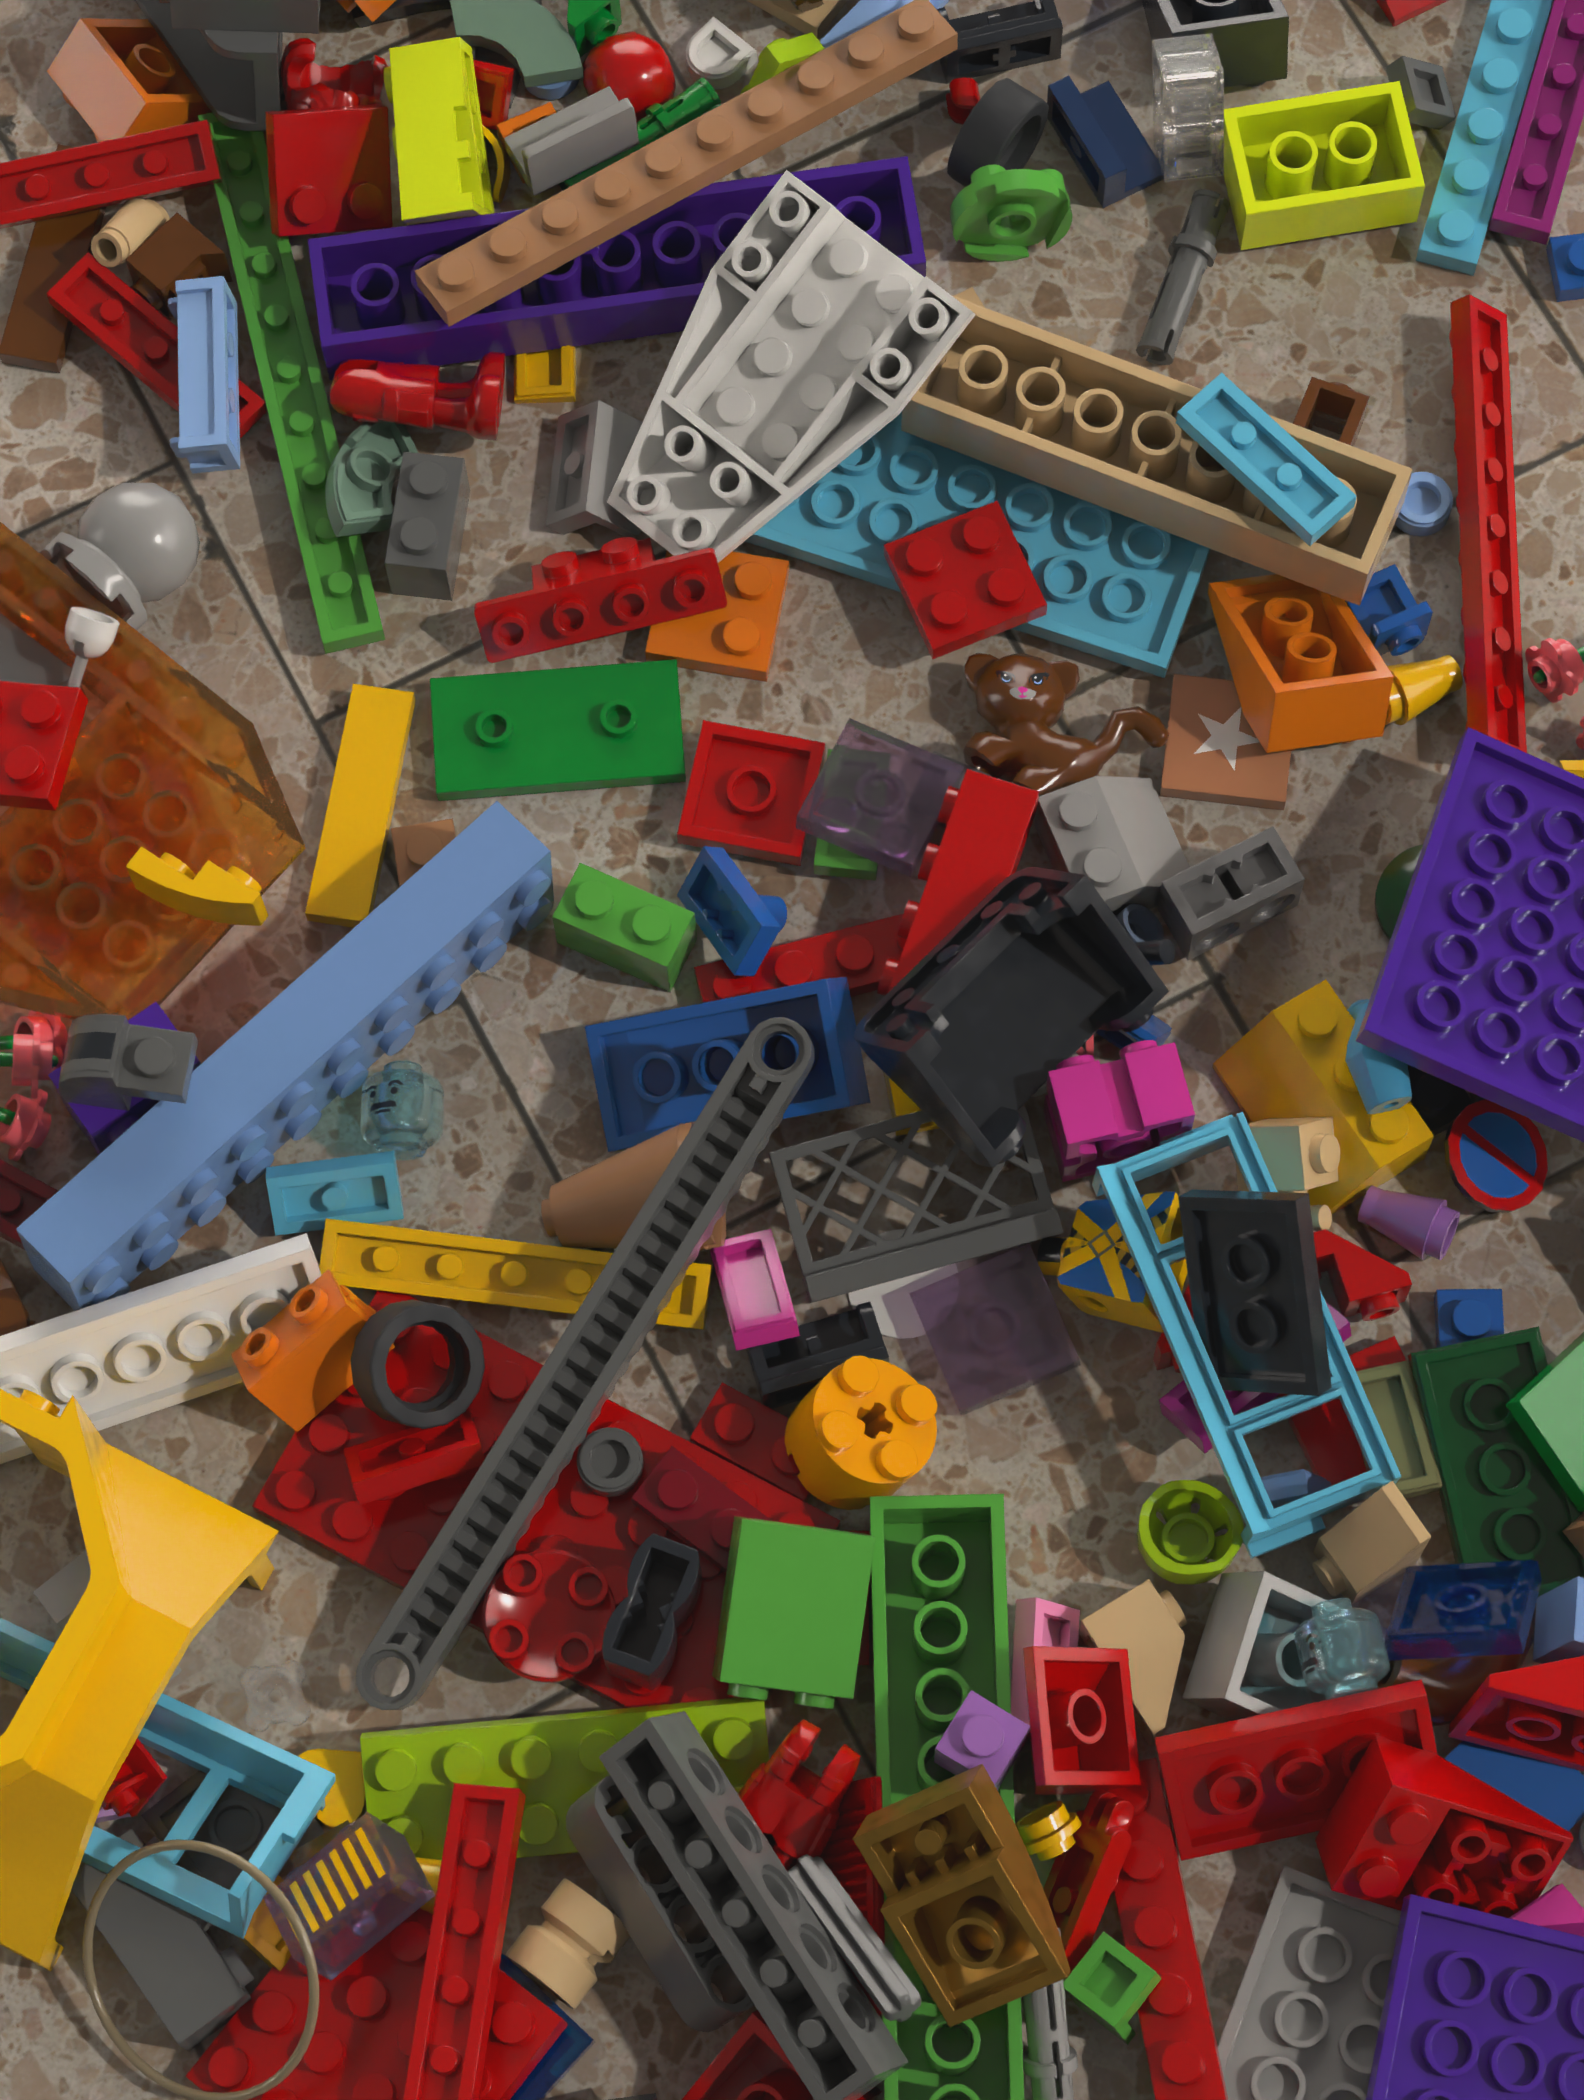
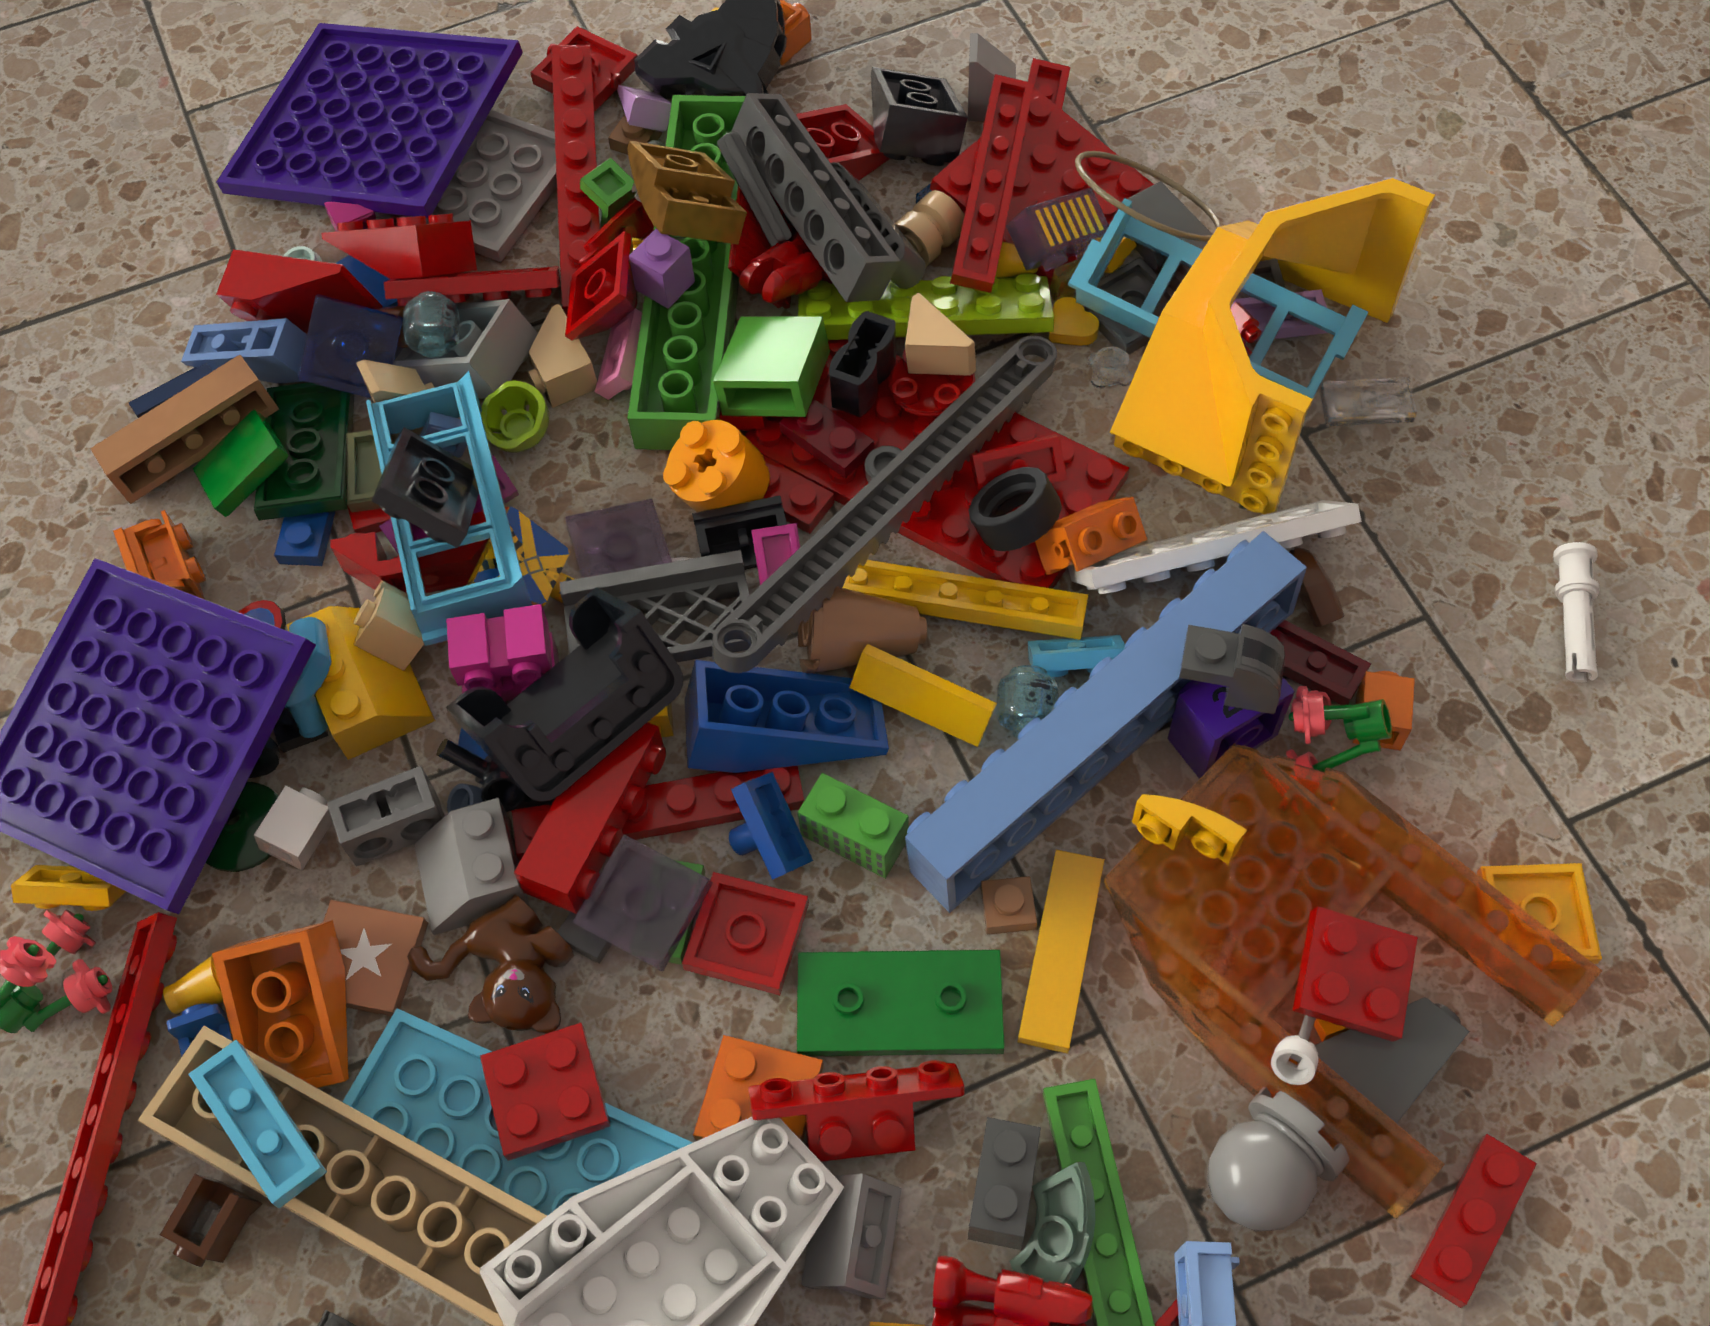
camera: 175 degrees left, 10 degrees down
(543, 1109) = (922, 695): none -> yellow tile
(544, 1640) = (936, 343): none -> tan slope
(1353, 880) = (294, 826): none -> white brick
(1412, 1221) = (314, 592): medium lavender cone -> none
(1425, 505) = (150, 1158): light blue tile -> none

